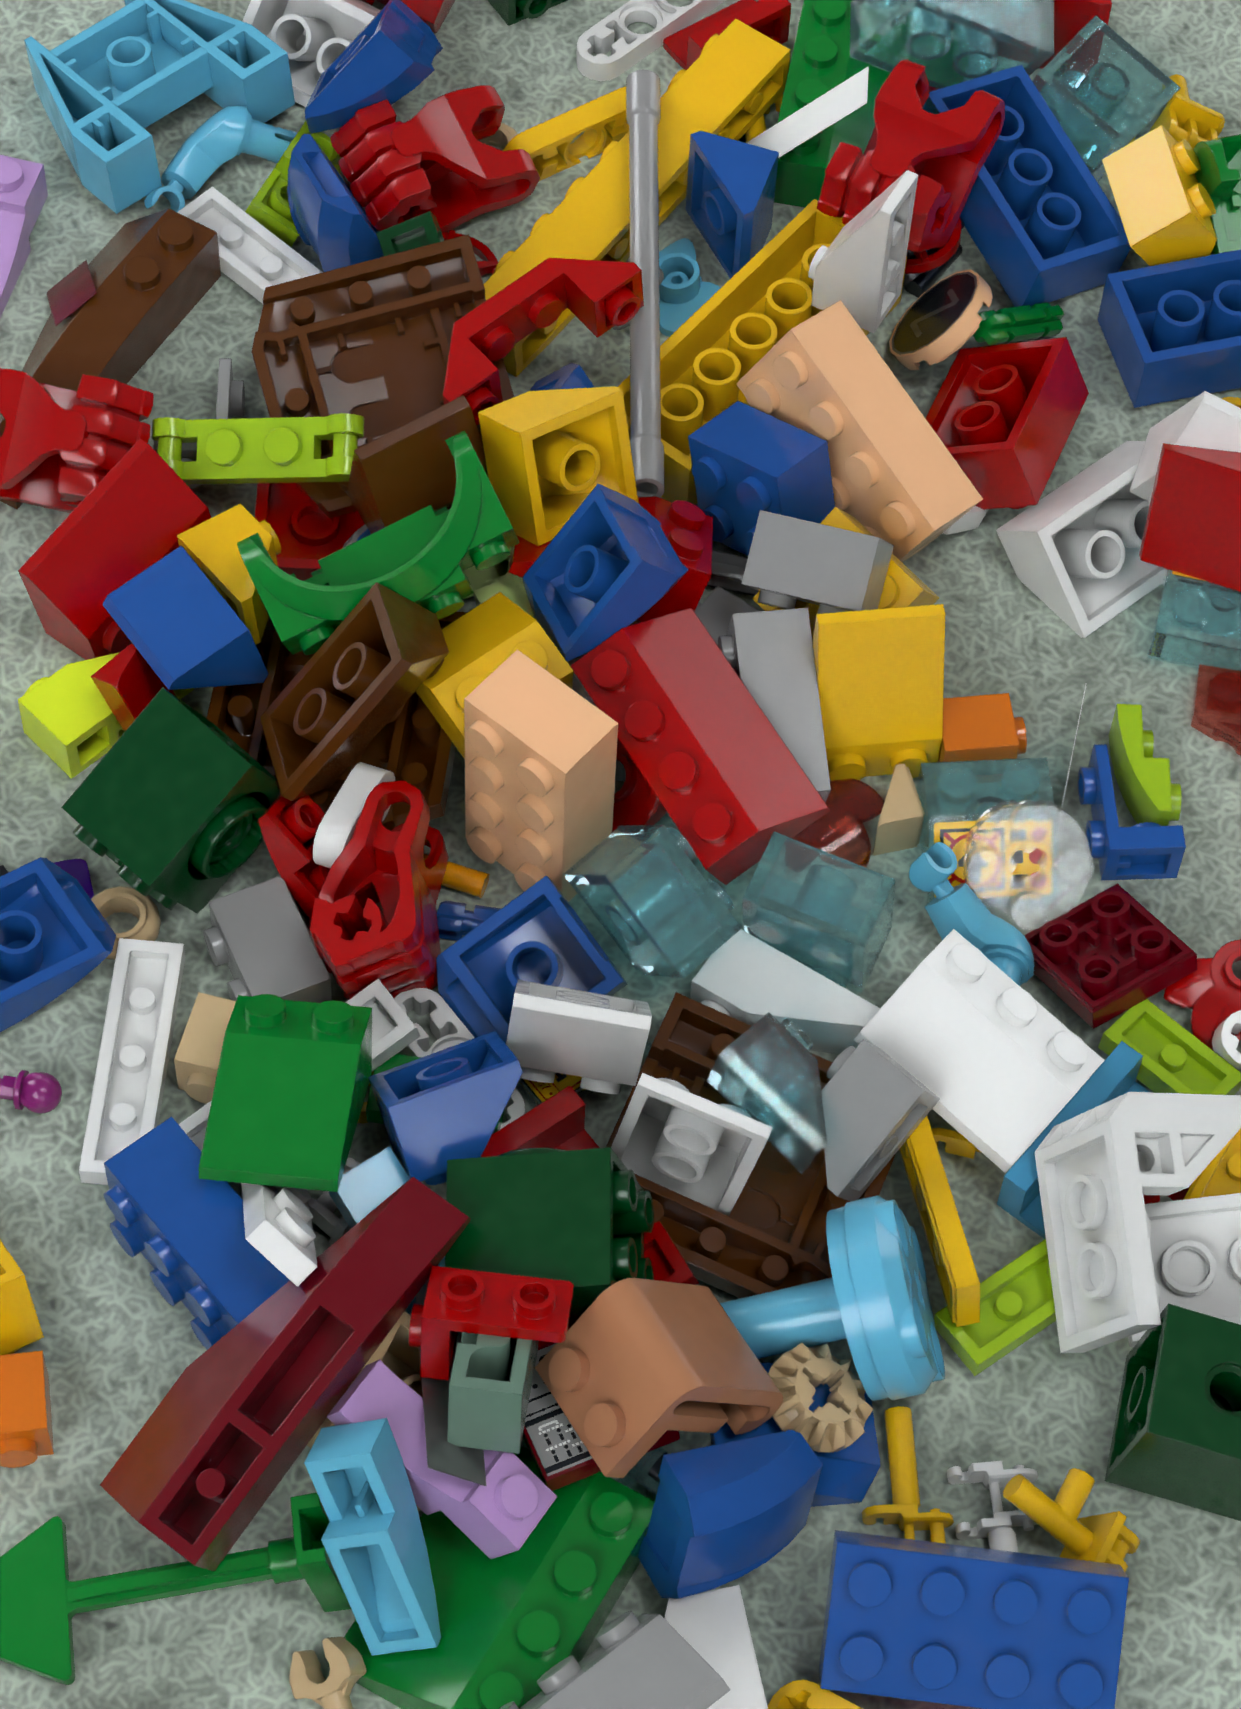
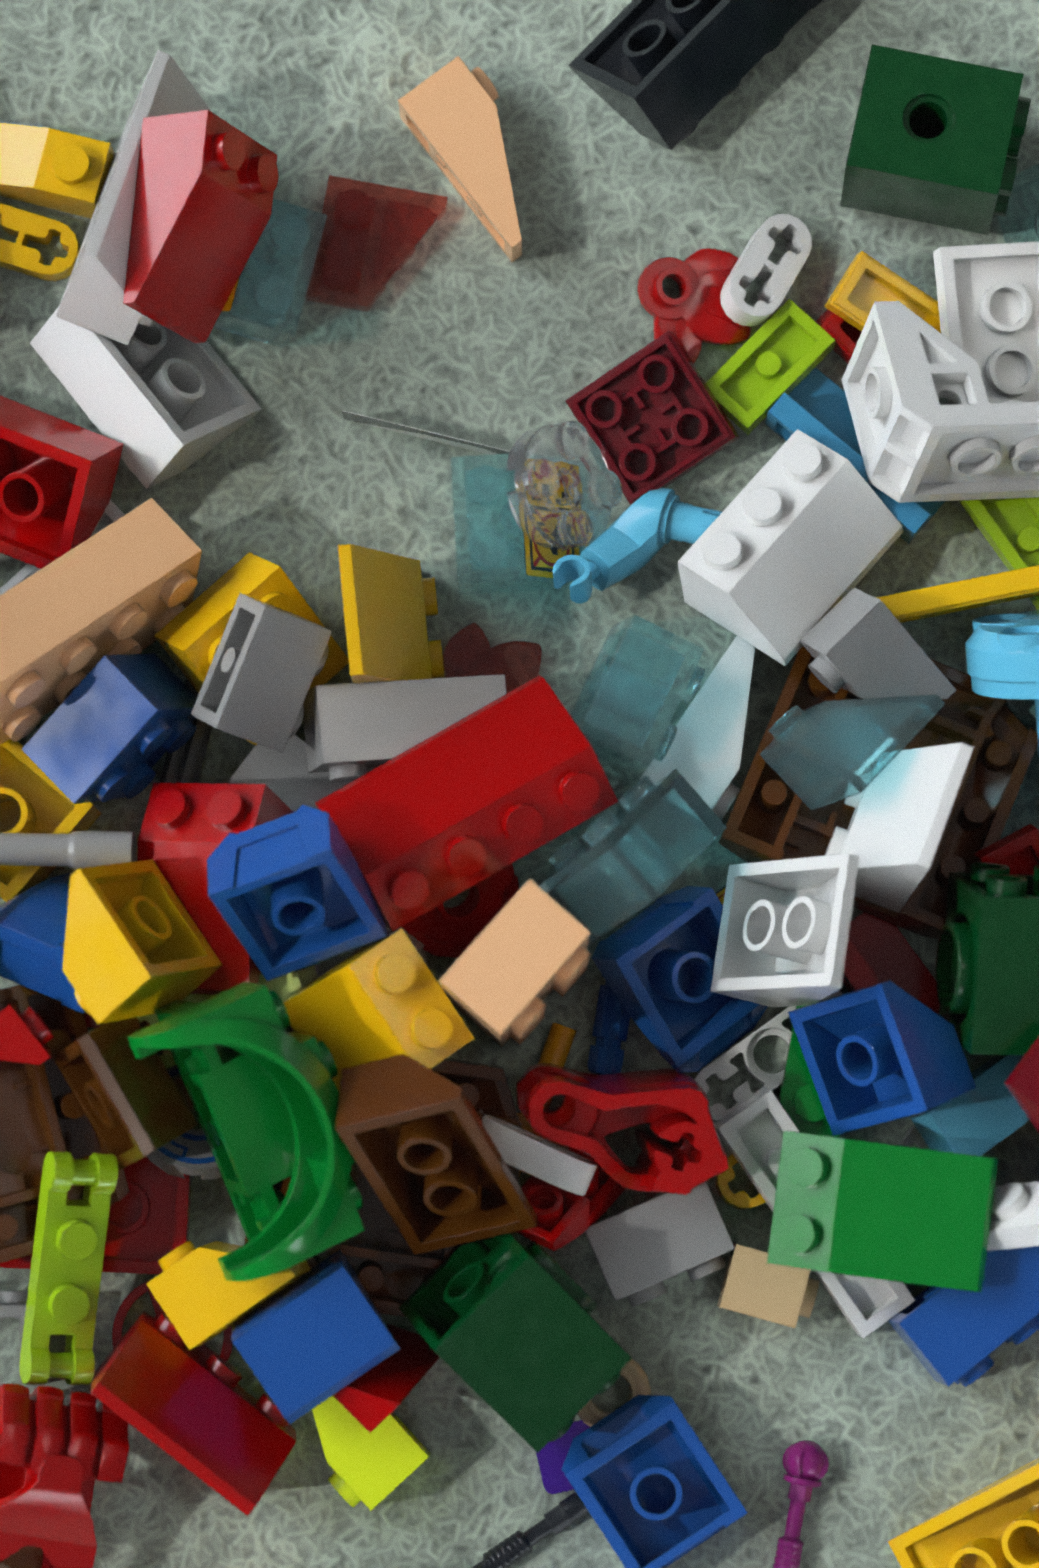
camera: 85 degrees left, 25 degrees up
(132, 1051) = (774, 1371): white plate -> none
(901, 815) = (489, 609): tan slope -> none
(981, 729) = (401, 519): orange brick -> none
(1124, 852) = (515, 410): blue bracket -> none
(1140, 777) = (464, 359): lime slope -> none

